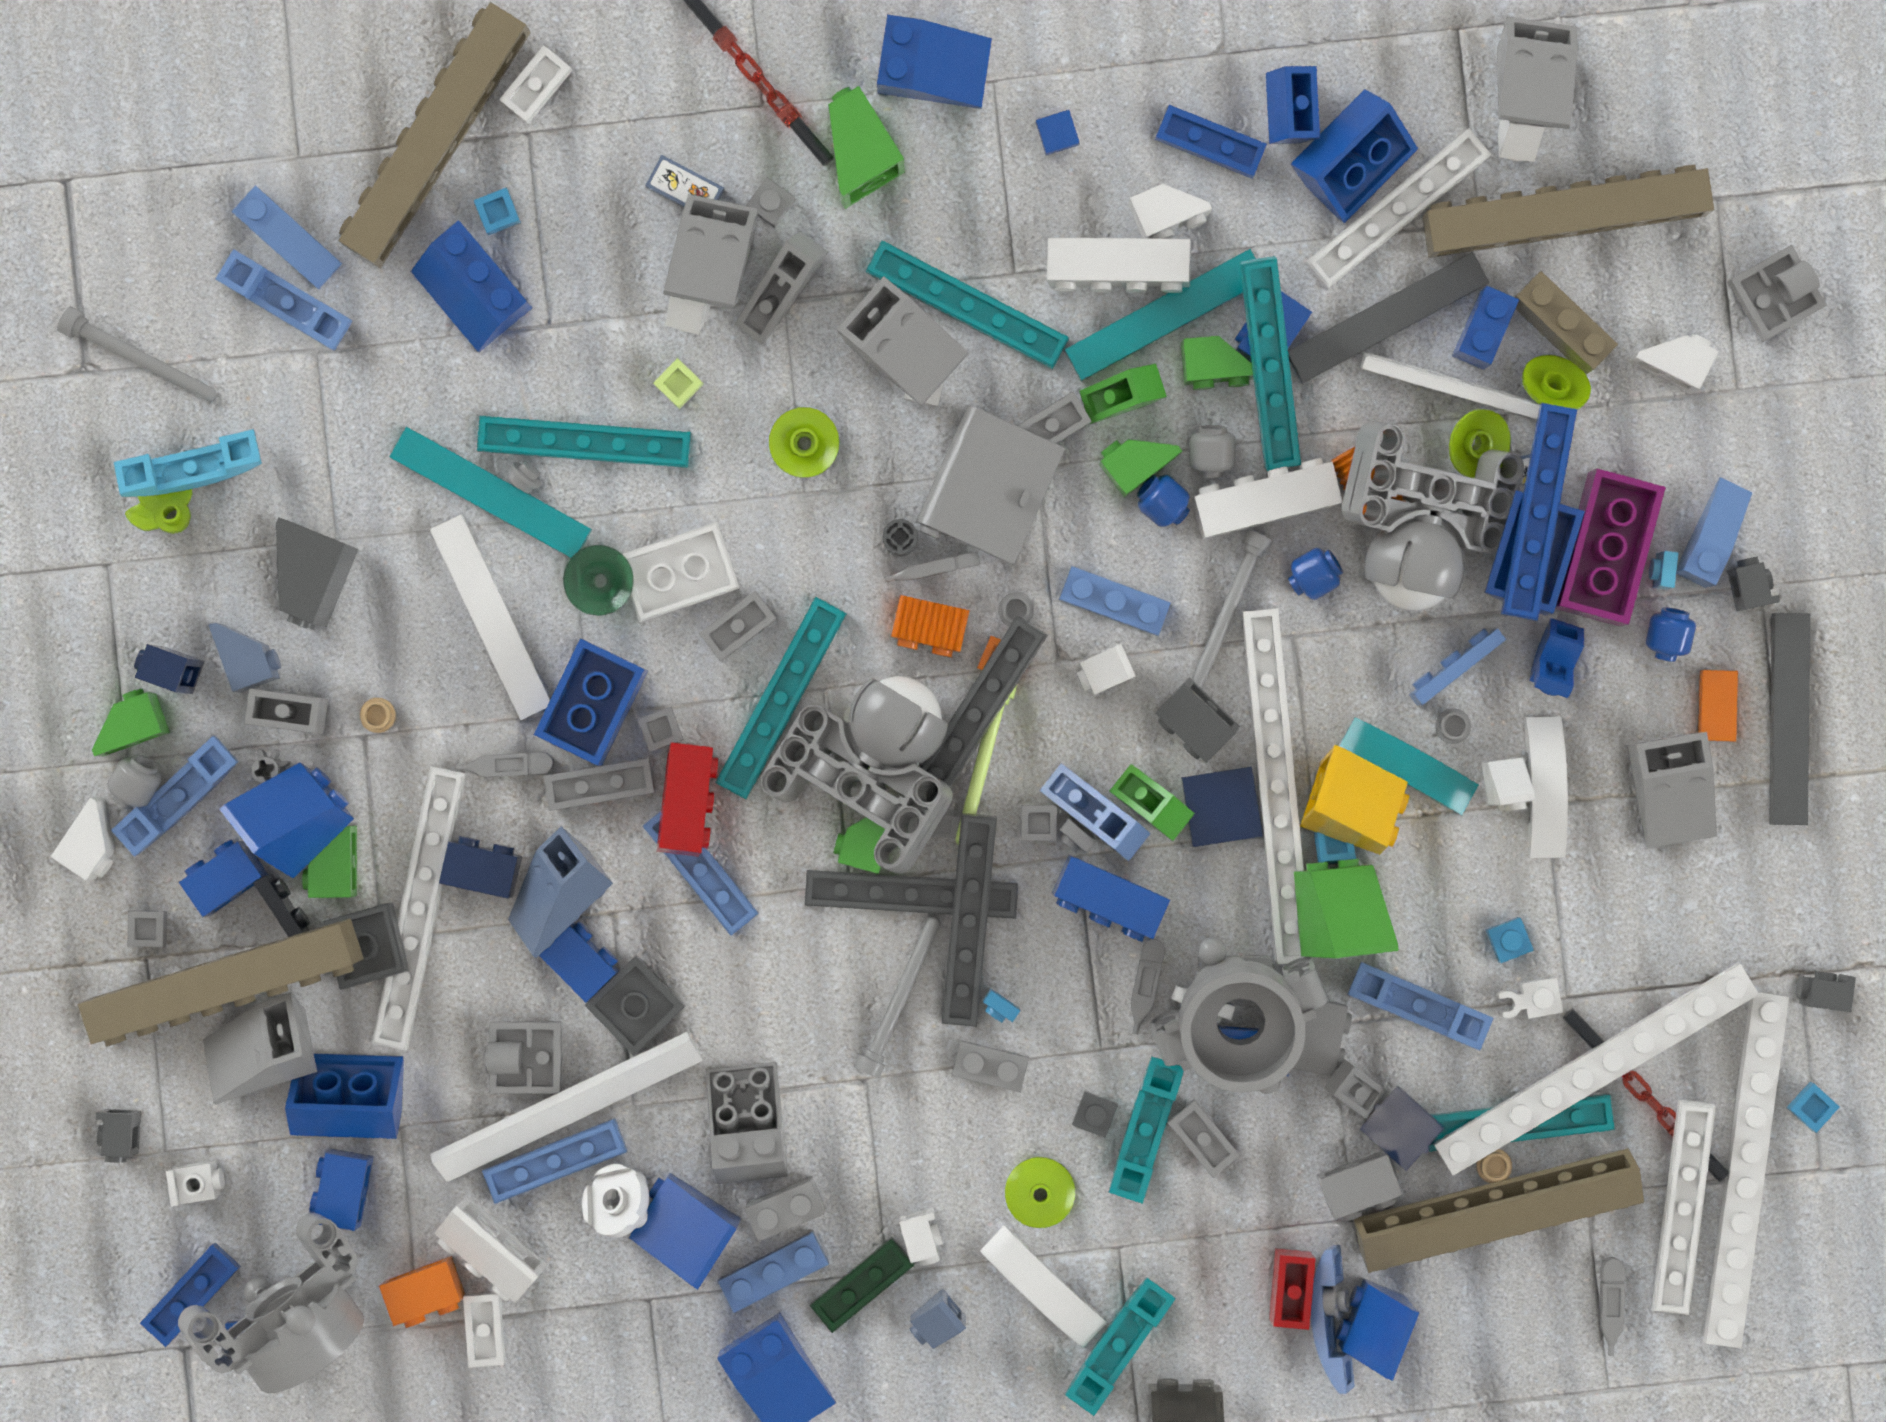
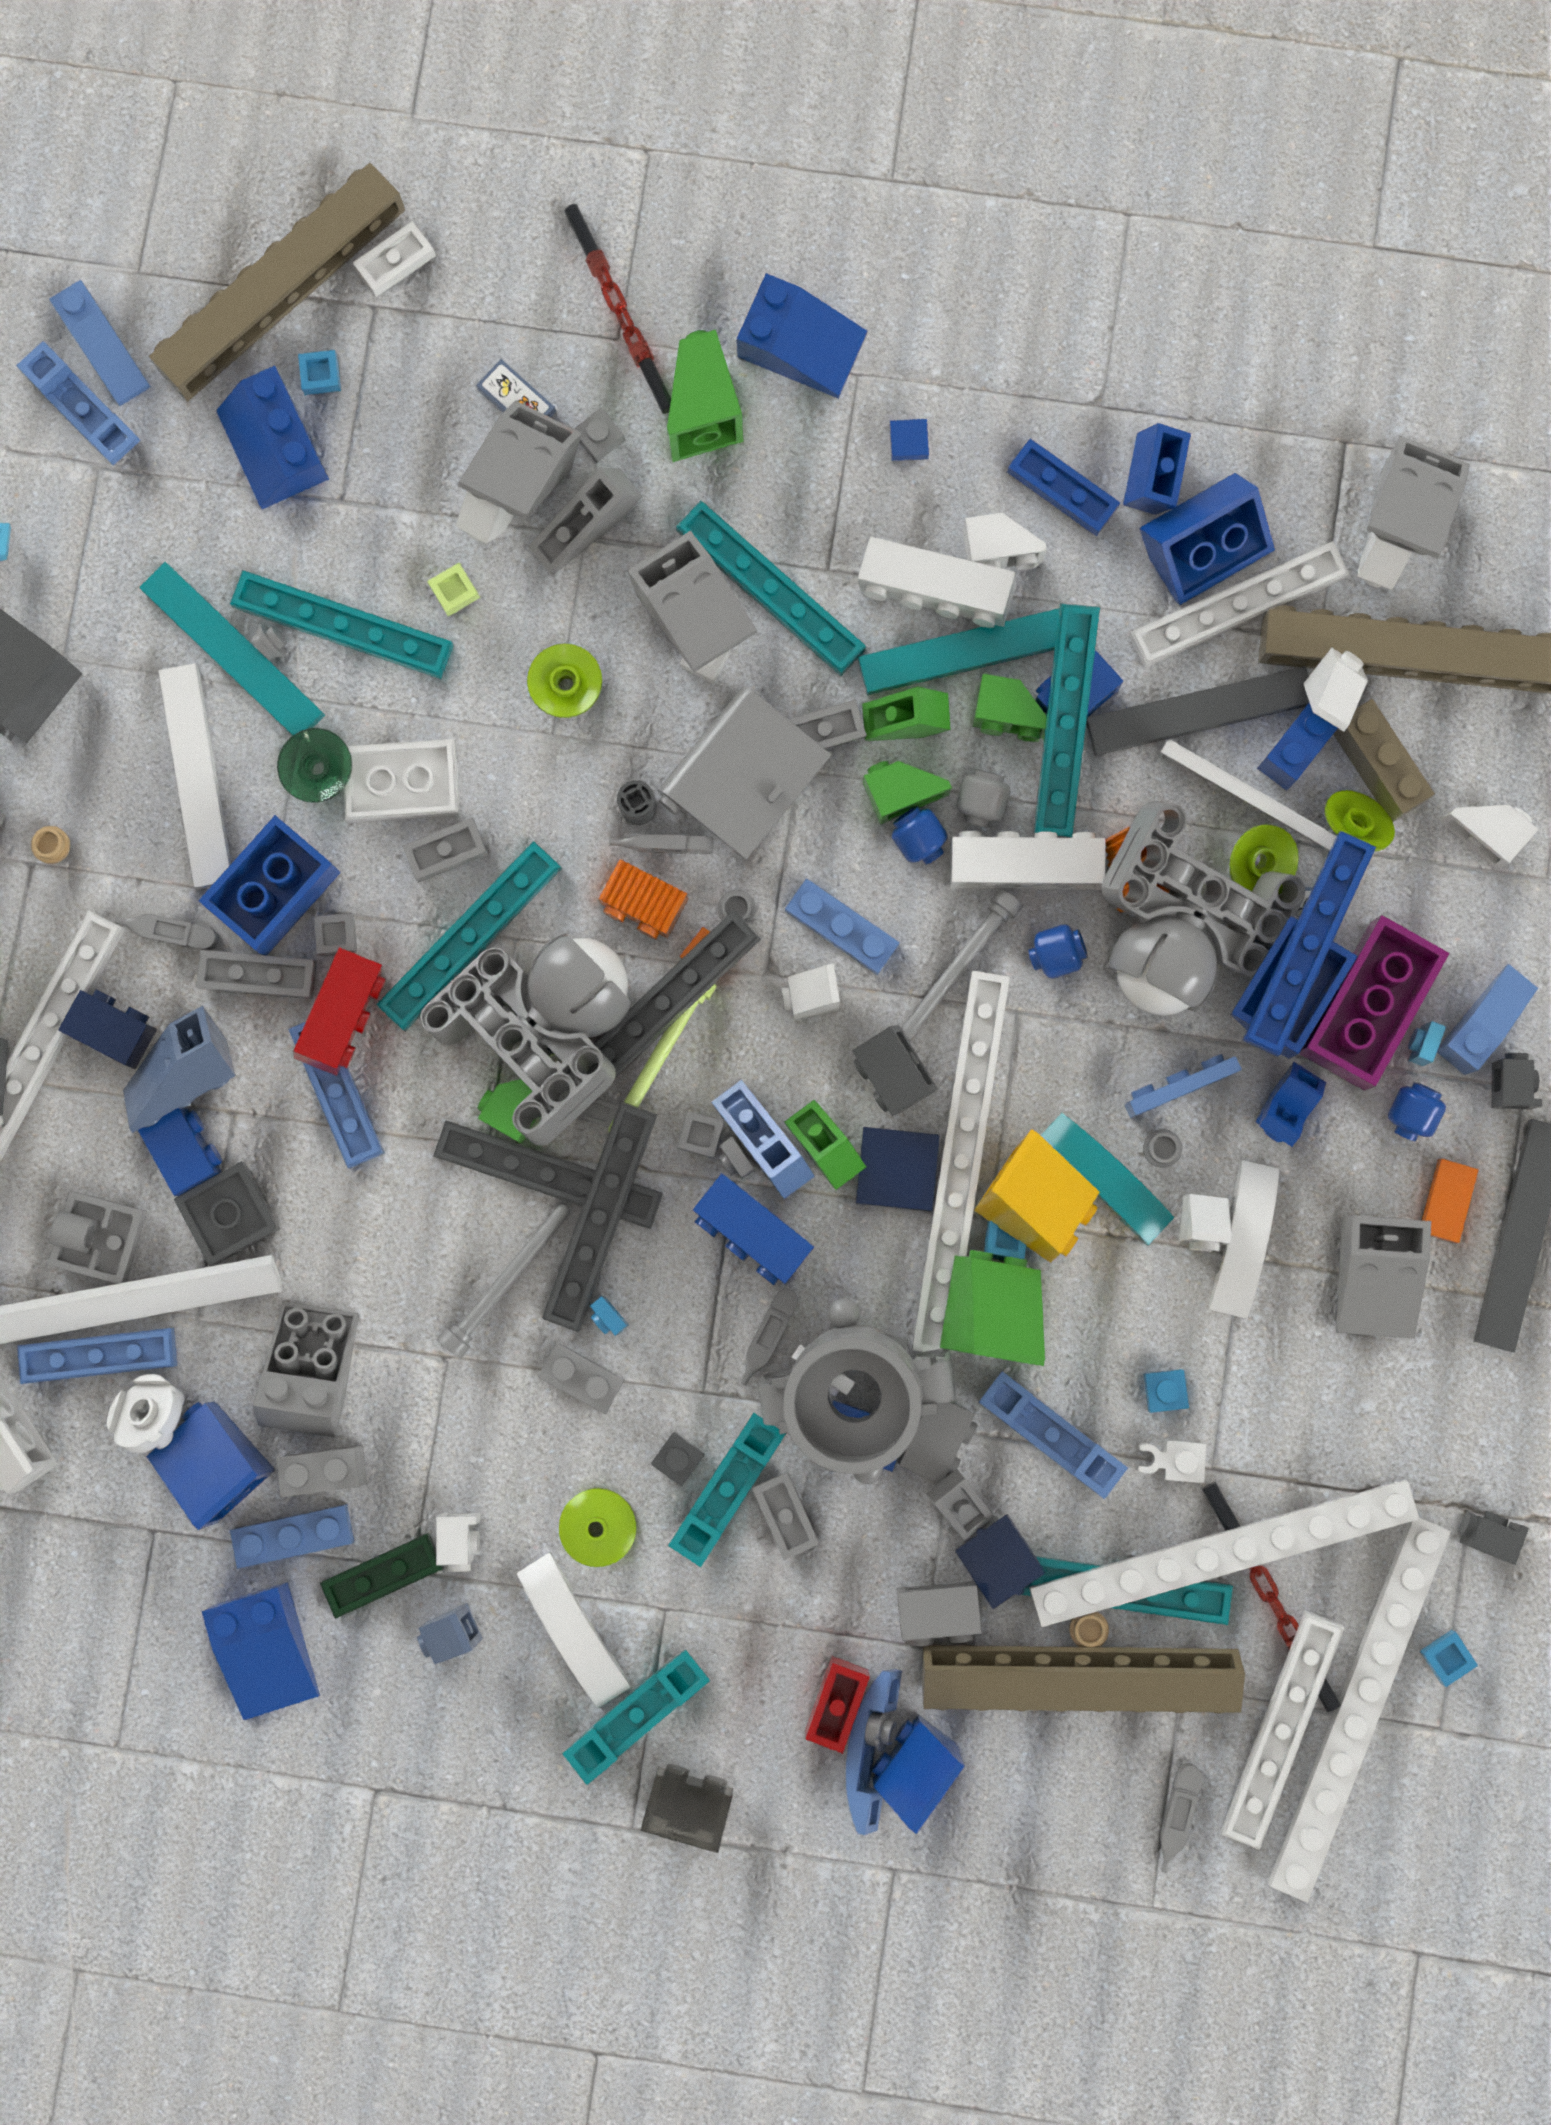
camera: 20 degrees right, 5 degrees down
(1506, 271) = (1336, 687): none -> white slope

